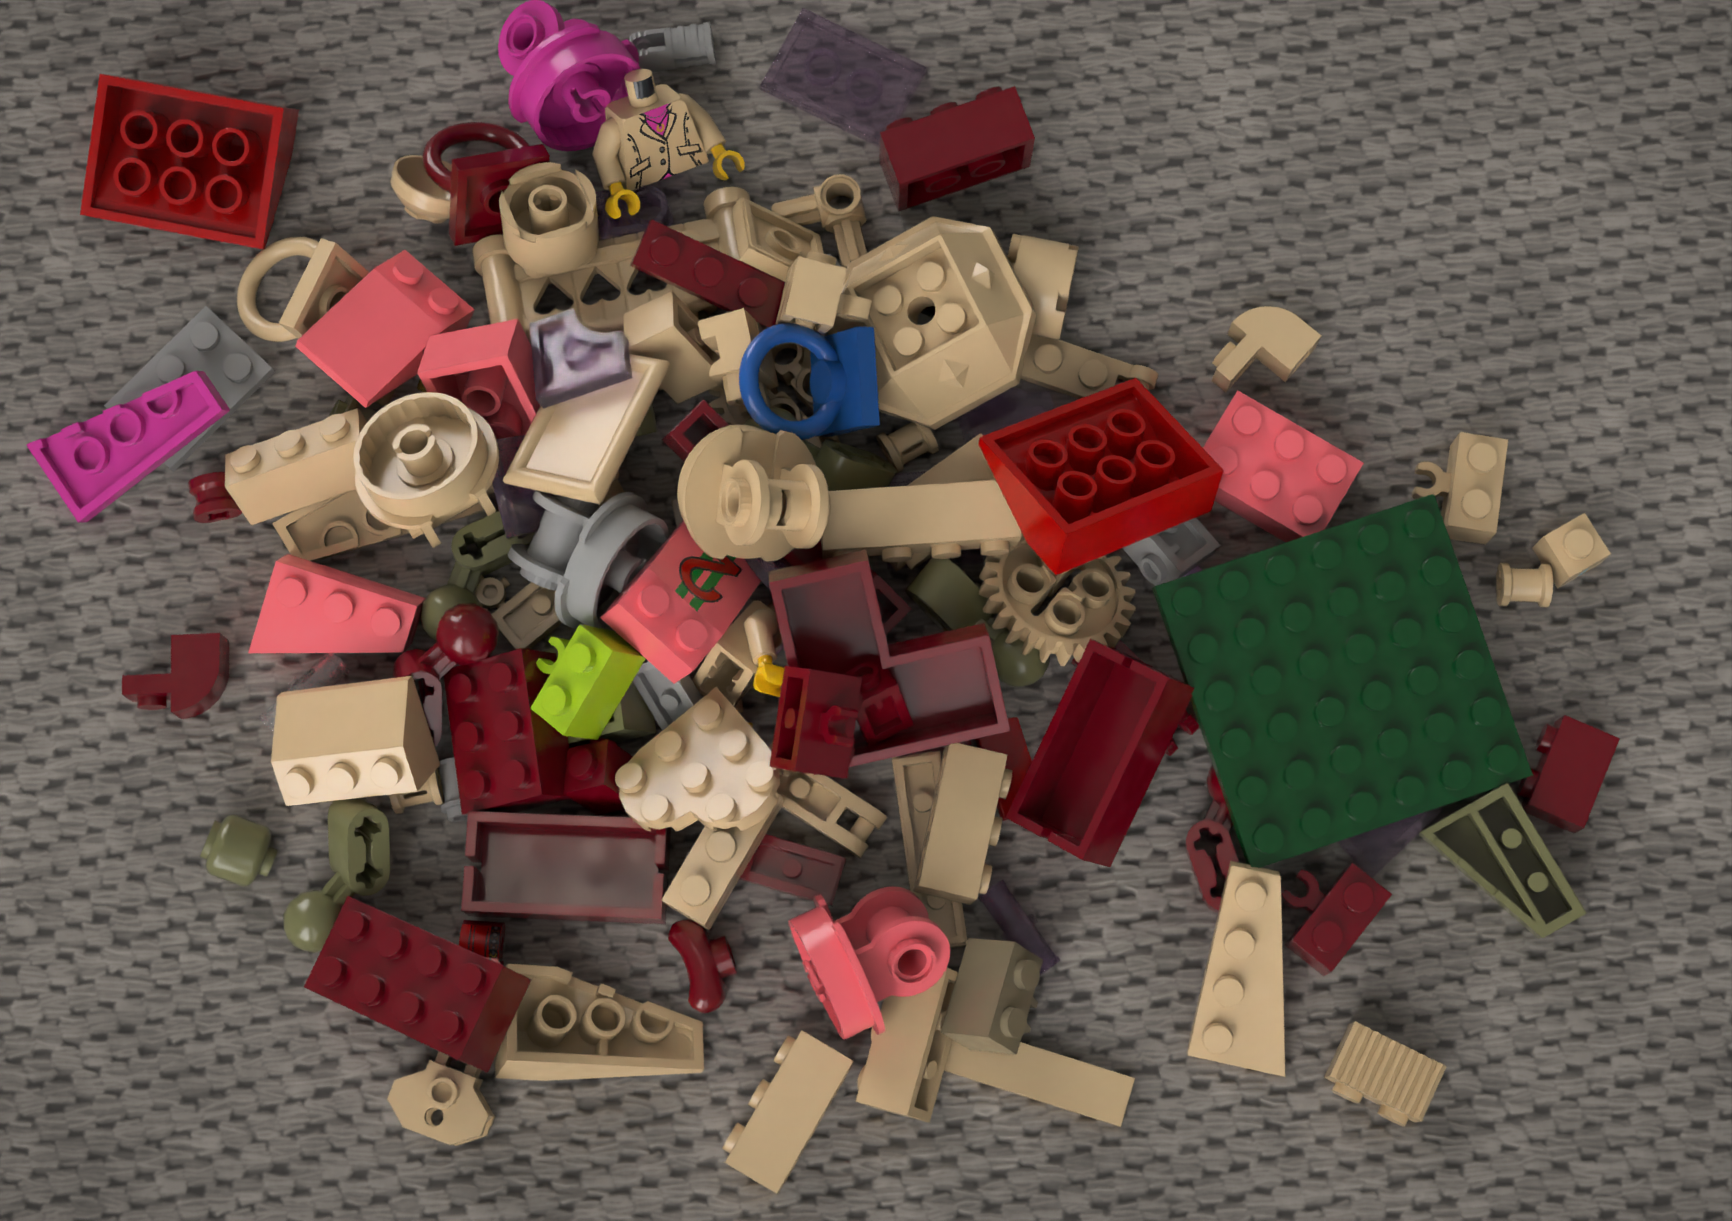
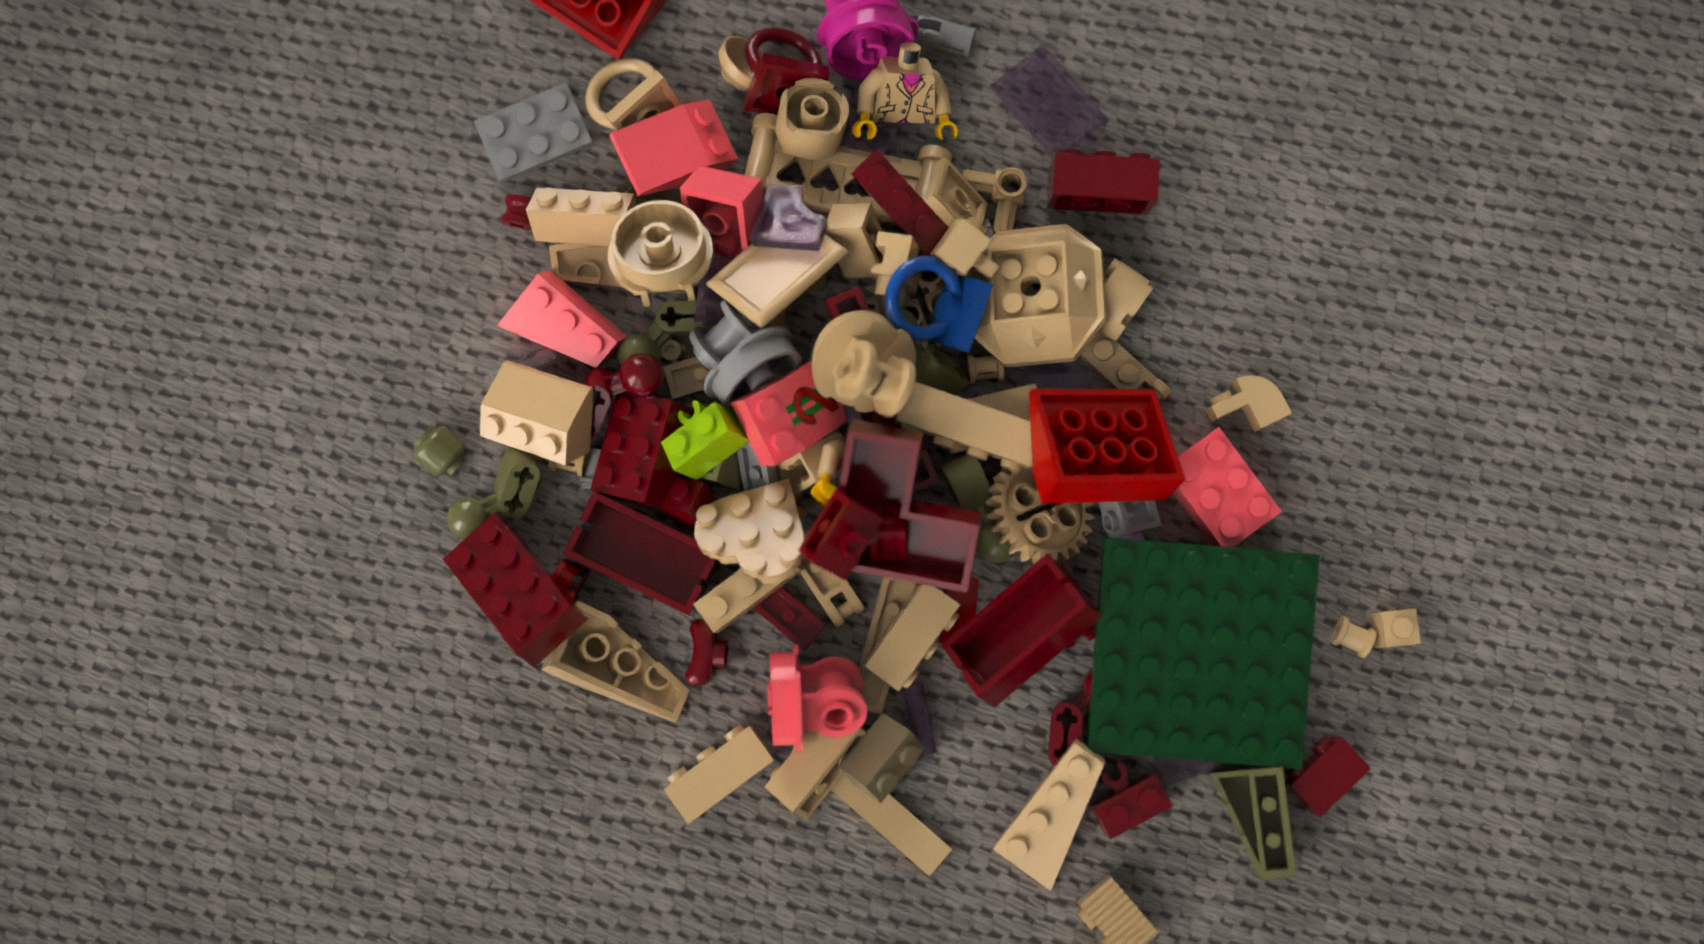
camera: 25 degrees right, 5 degrees up
(115, 450) = (475, 152): dark pink wing -> none
(195, 679) = (457, 328): dark red brick -> none
(443, 1088) = (510, 670): tan hinge -> none
(1469, 487) = (1346, 556): tan brick -> none

